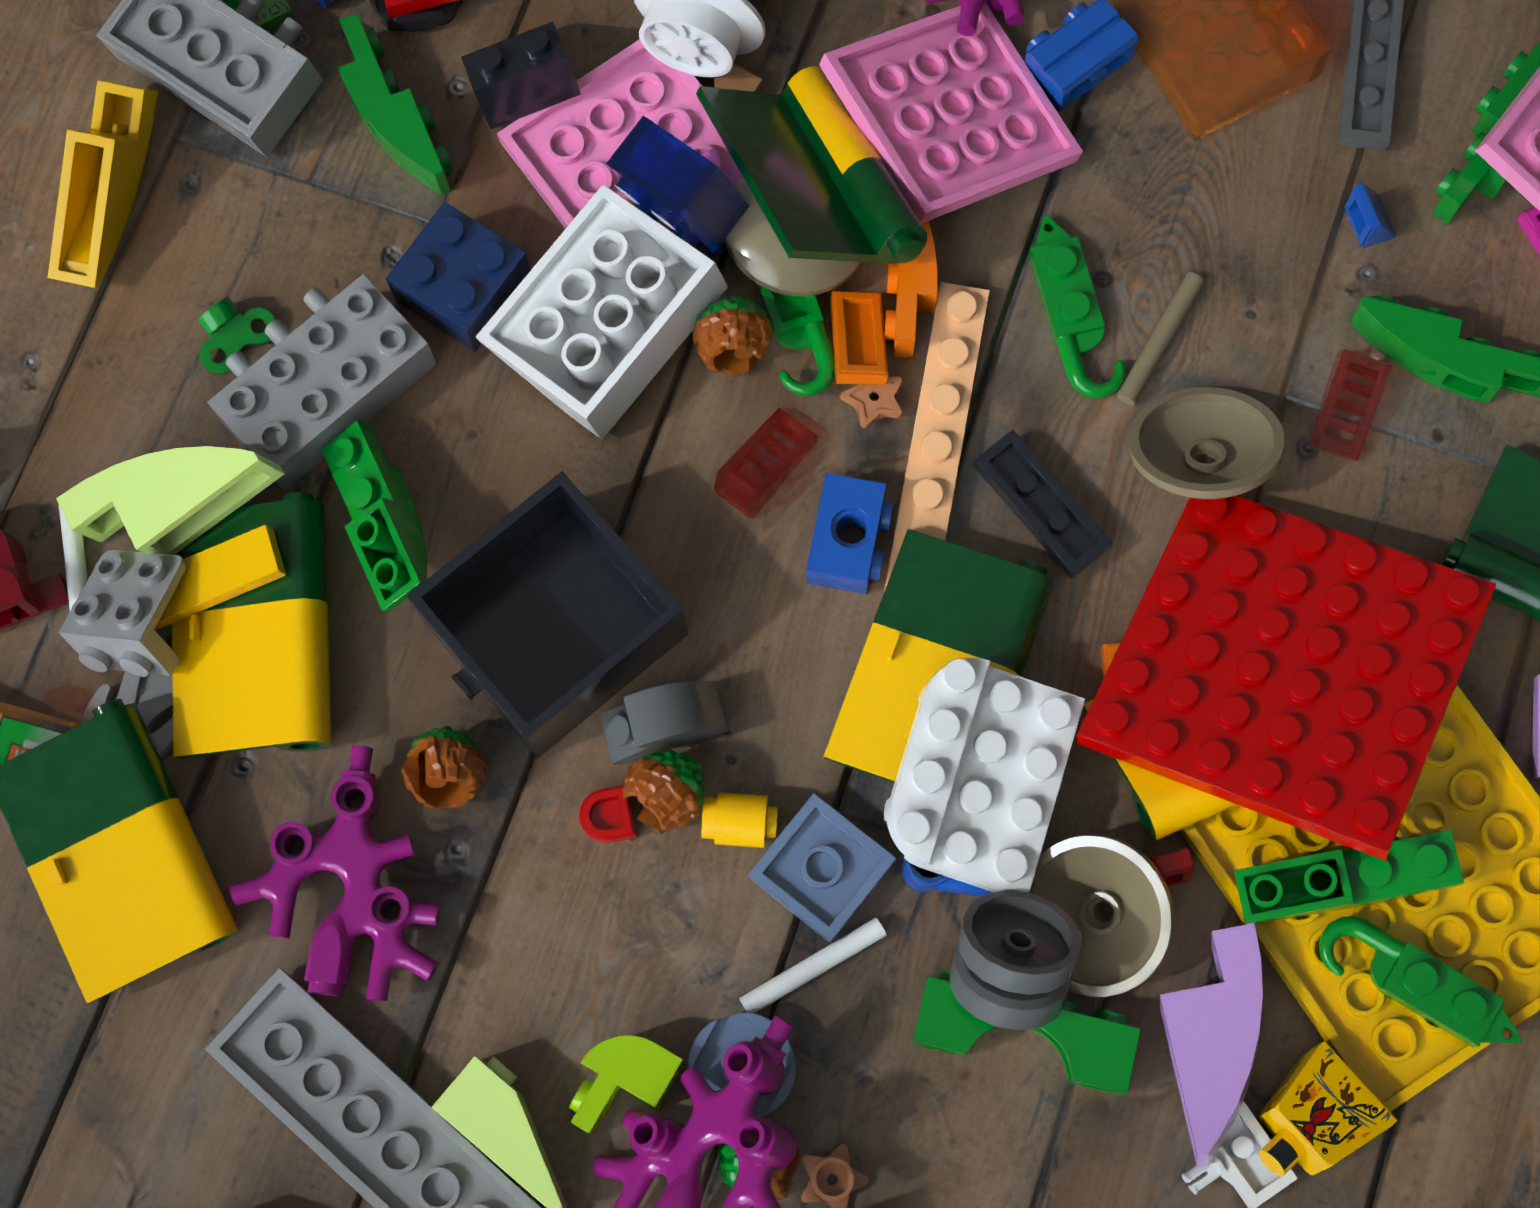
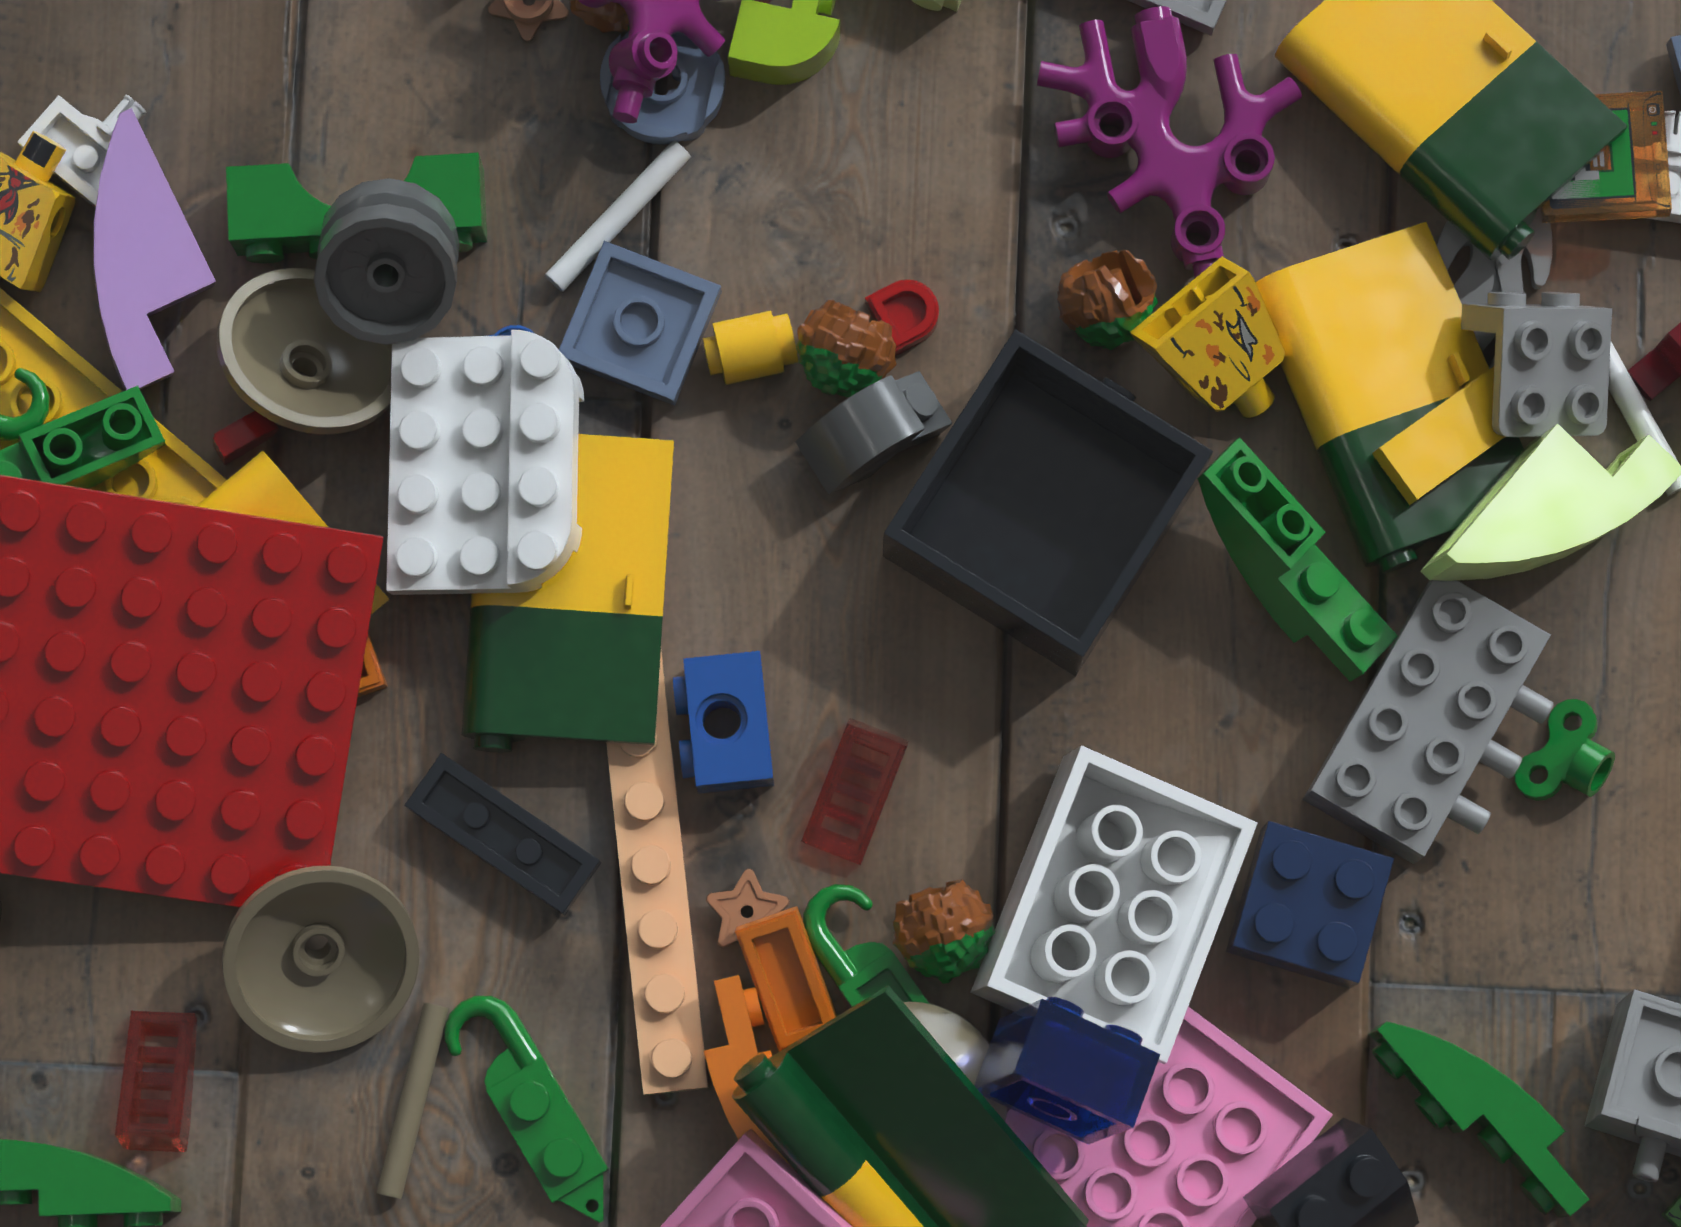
camera: 160 degrees right, 5 degrees up
(372, 704) = (1216, 339): none -> yellow torso

